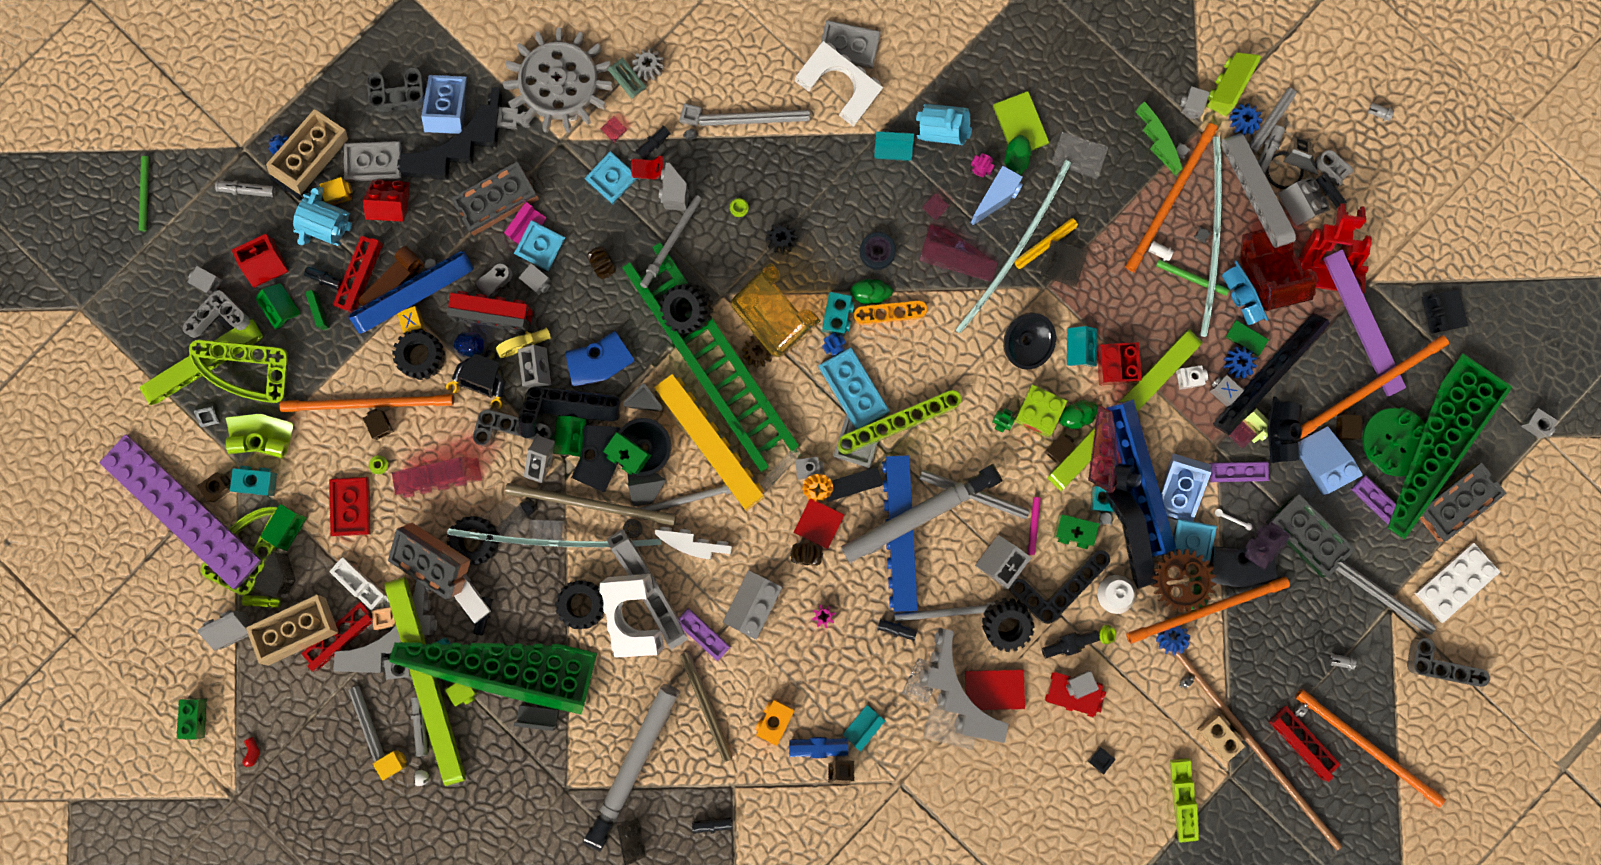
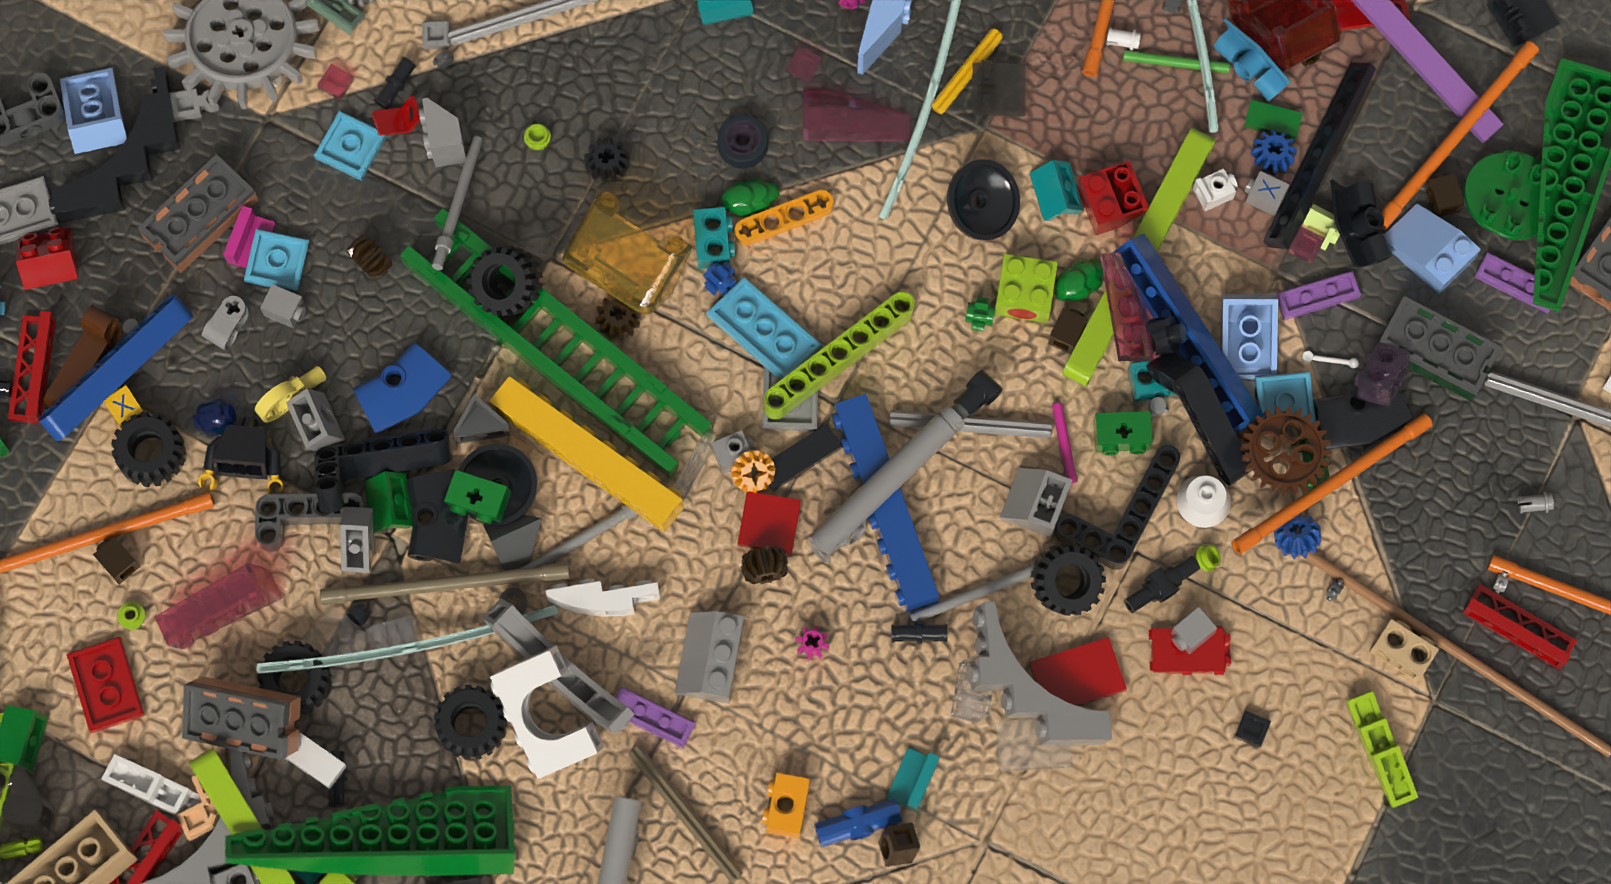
camera: 20 degrees left, 10 degrees down
(490, 312) = (233, 364): piece -> none

